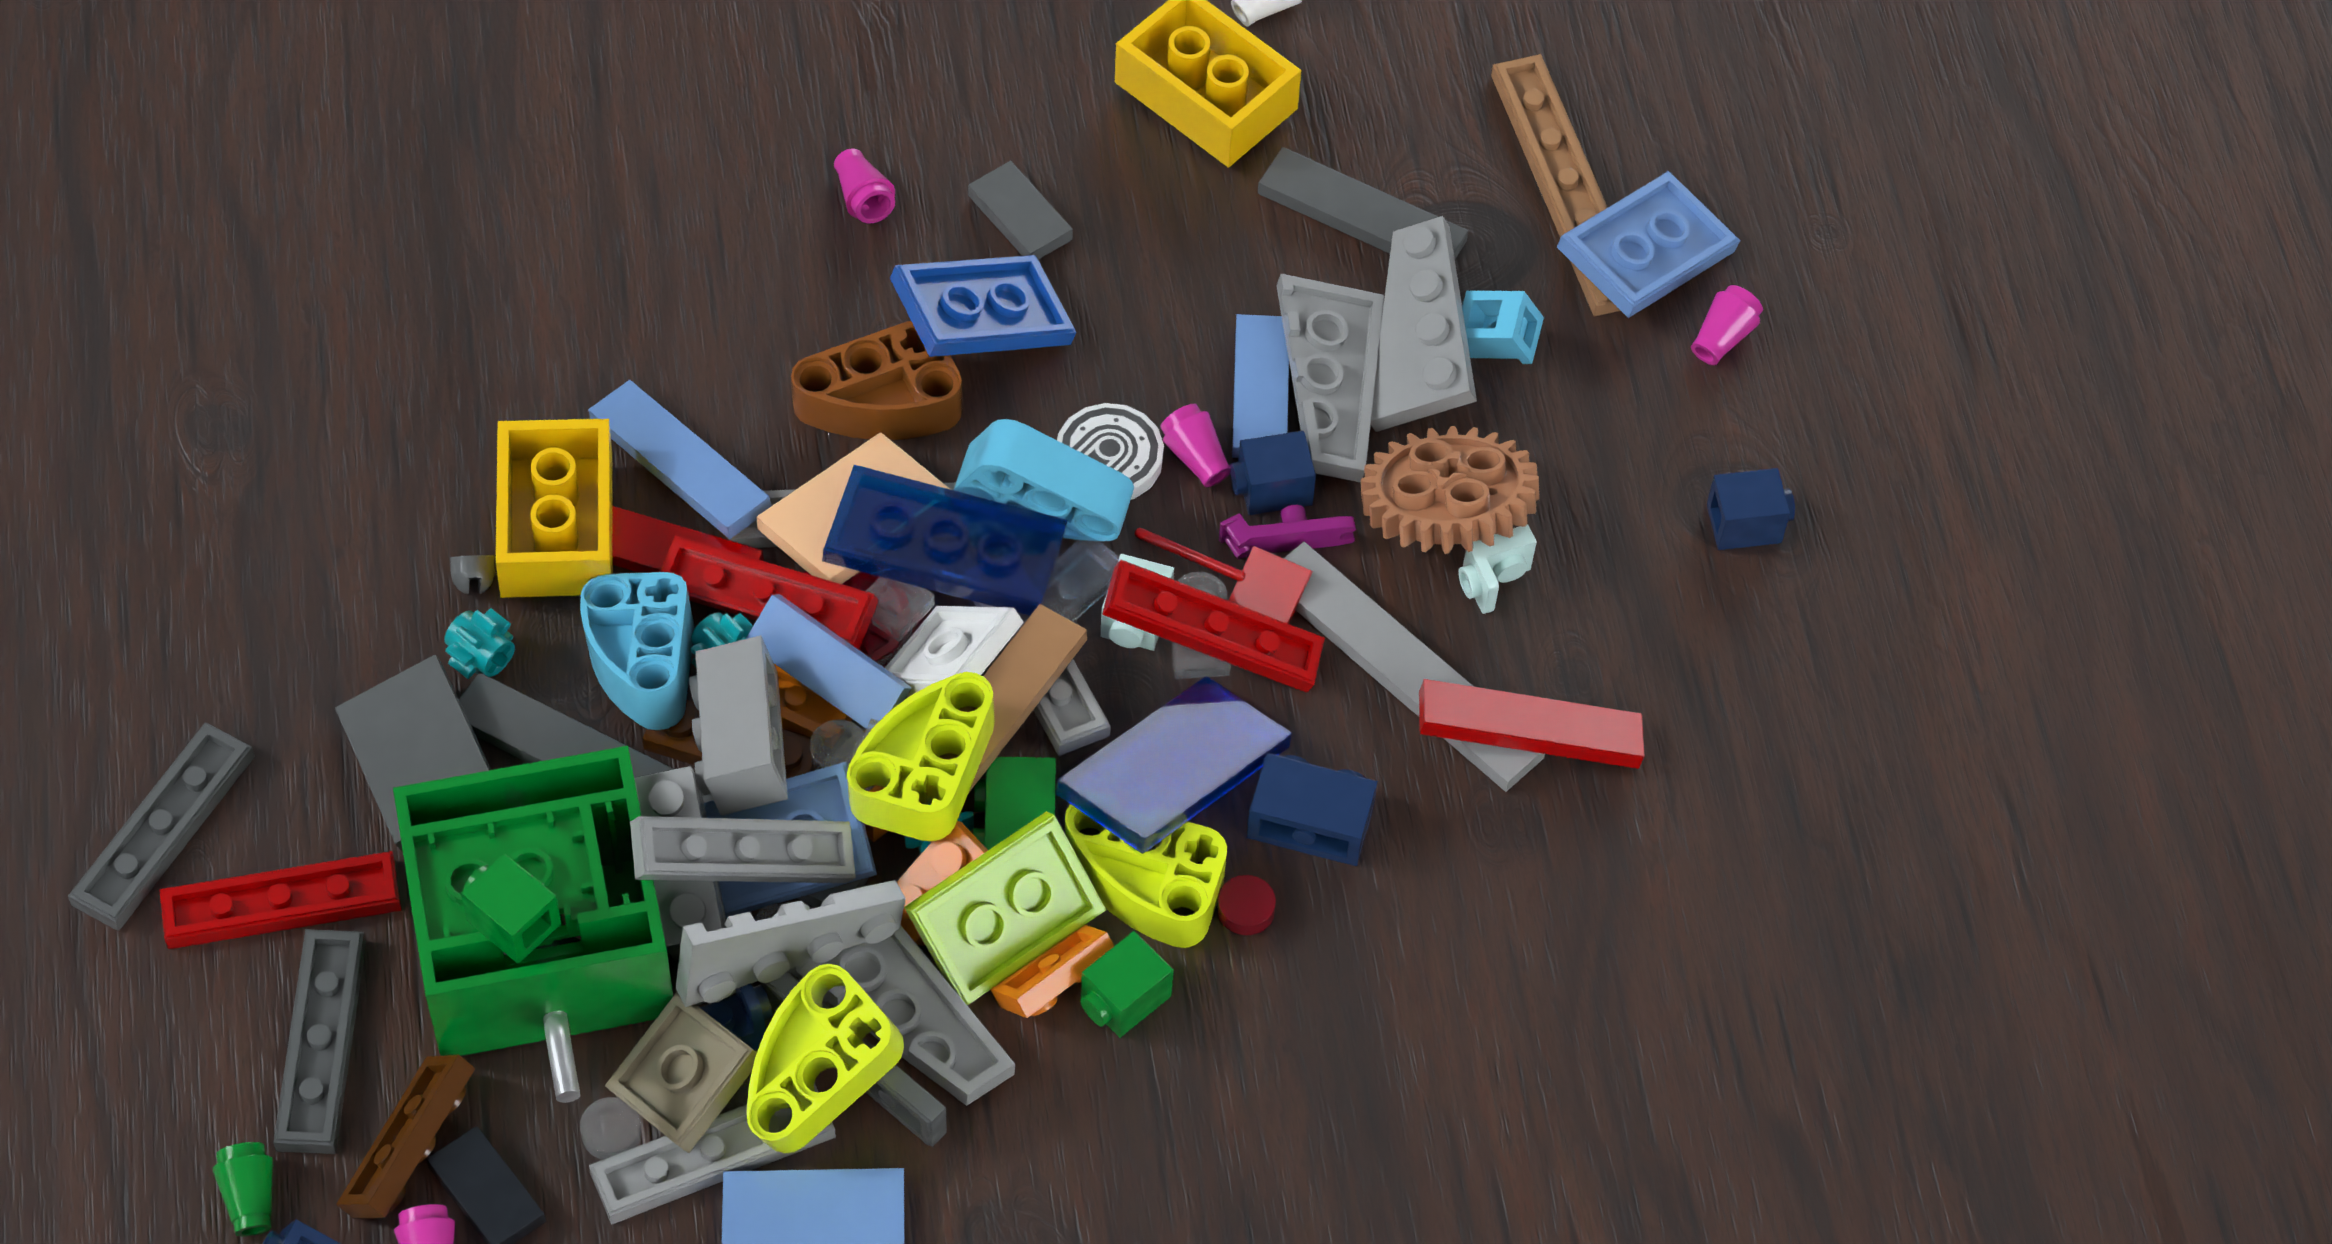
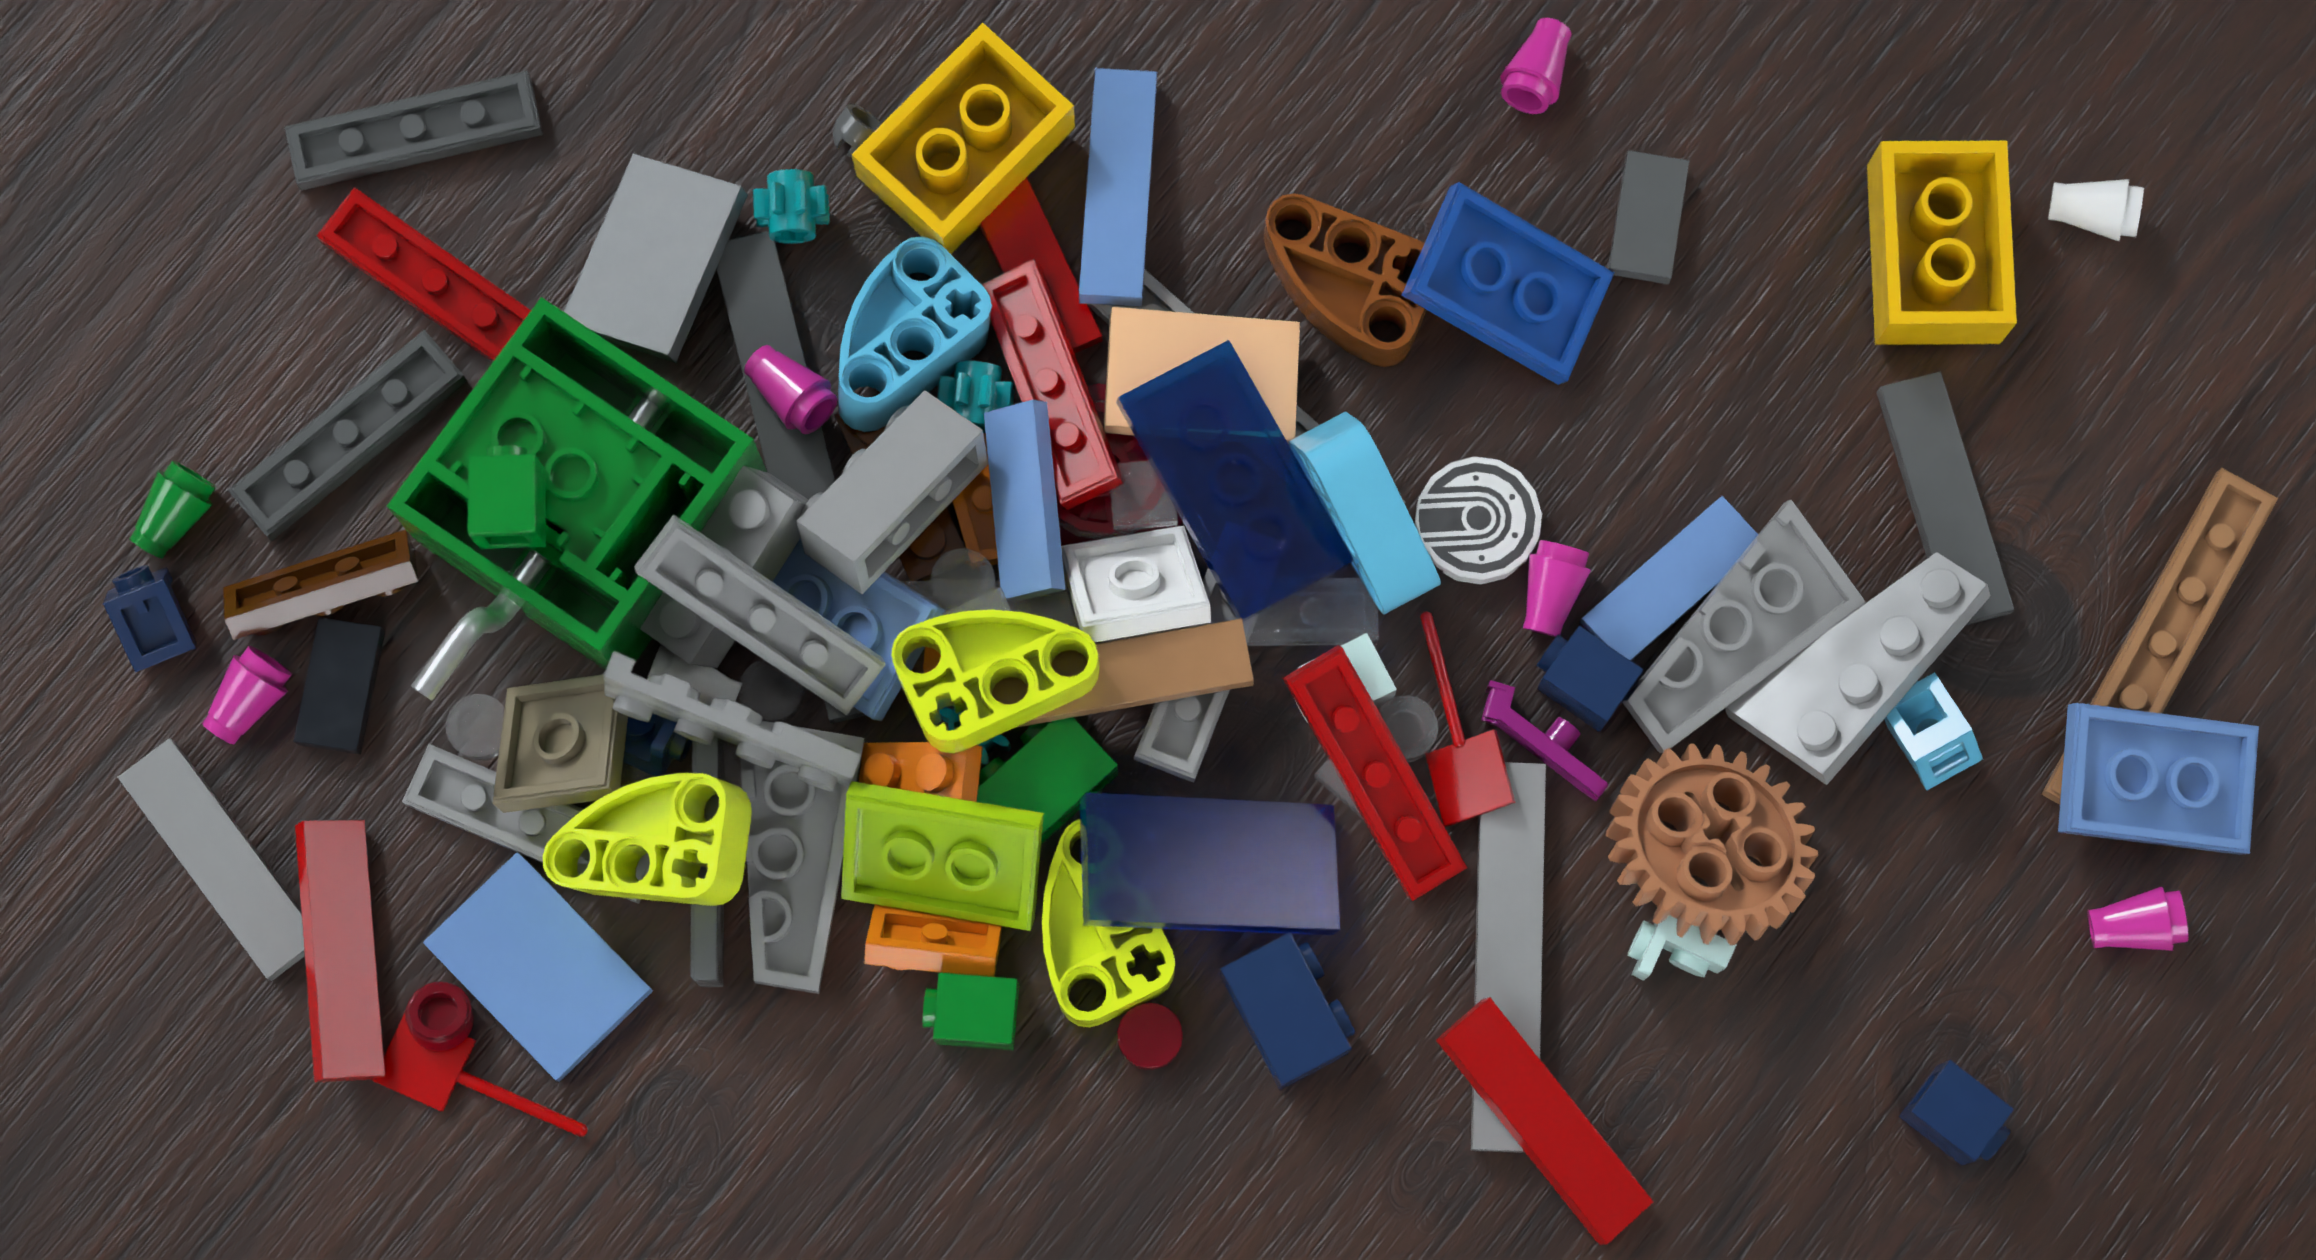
camera: 50 degrees right, 20 degrees up
(600, 733) = (793, 391): none -> dark pink cone

